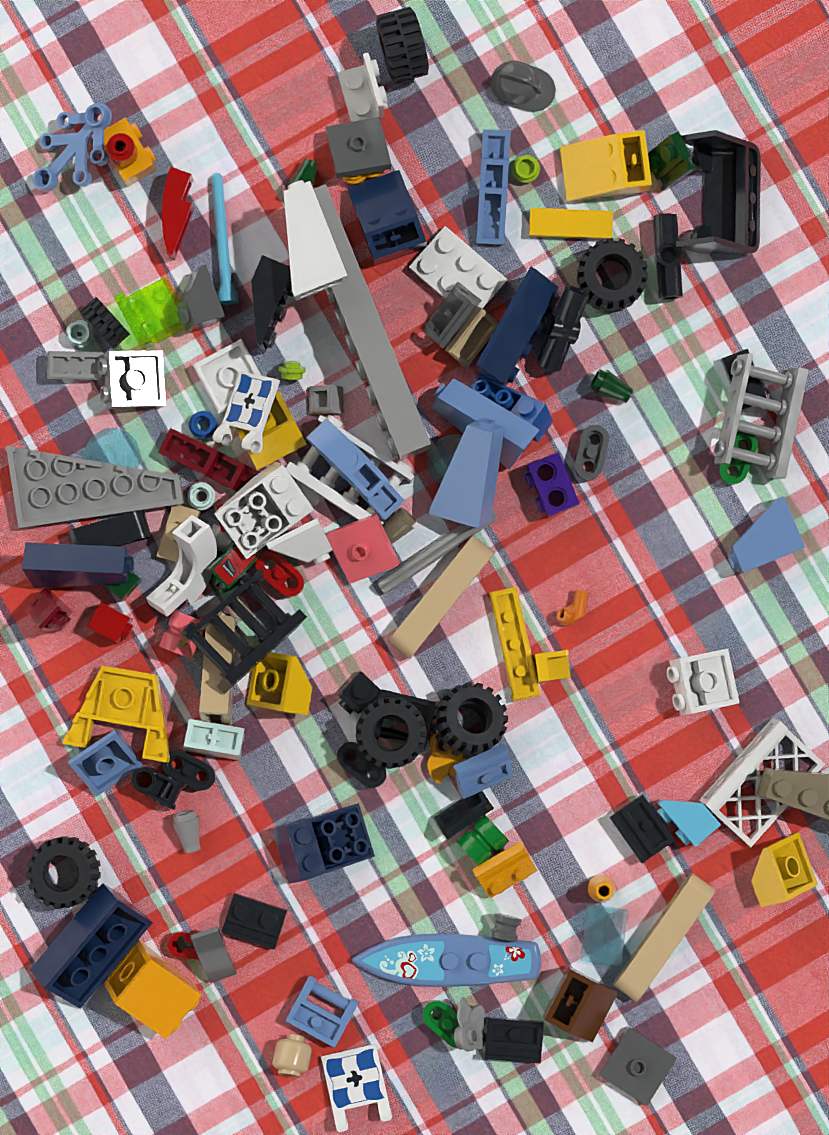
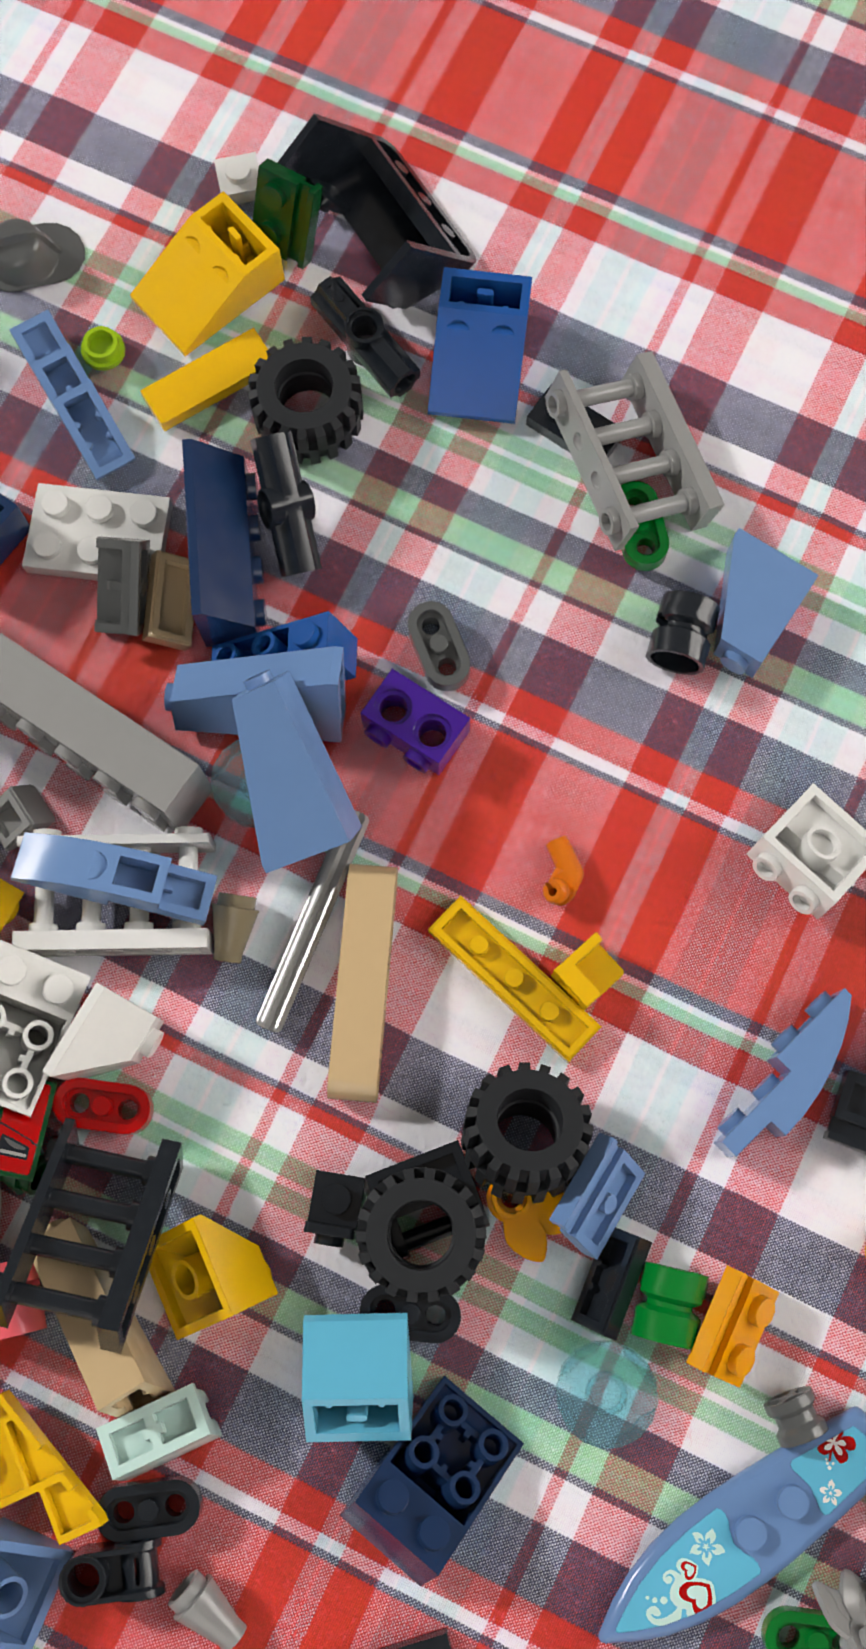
camera: 35 degrees left, 10 degrees down
(320, 775) = (357, 1377): none -> medium azure slope
(363, 548) = (201, 986): coral plate -> none
(427, 860) = (606, 1394): none -> clear light blue tile
(610, 386) = (404, 544): dark green cone -> none
(624, 776) = (804, 1063): none -> medium blue slope
(663, 114) = (238, 176): none -> white plate
(717, 529) = (682, 633): none -> black wheel
(722, 304) = (479, 345): none -> blue slope

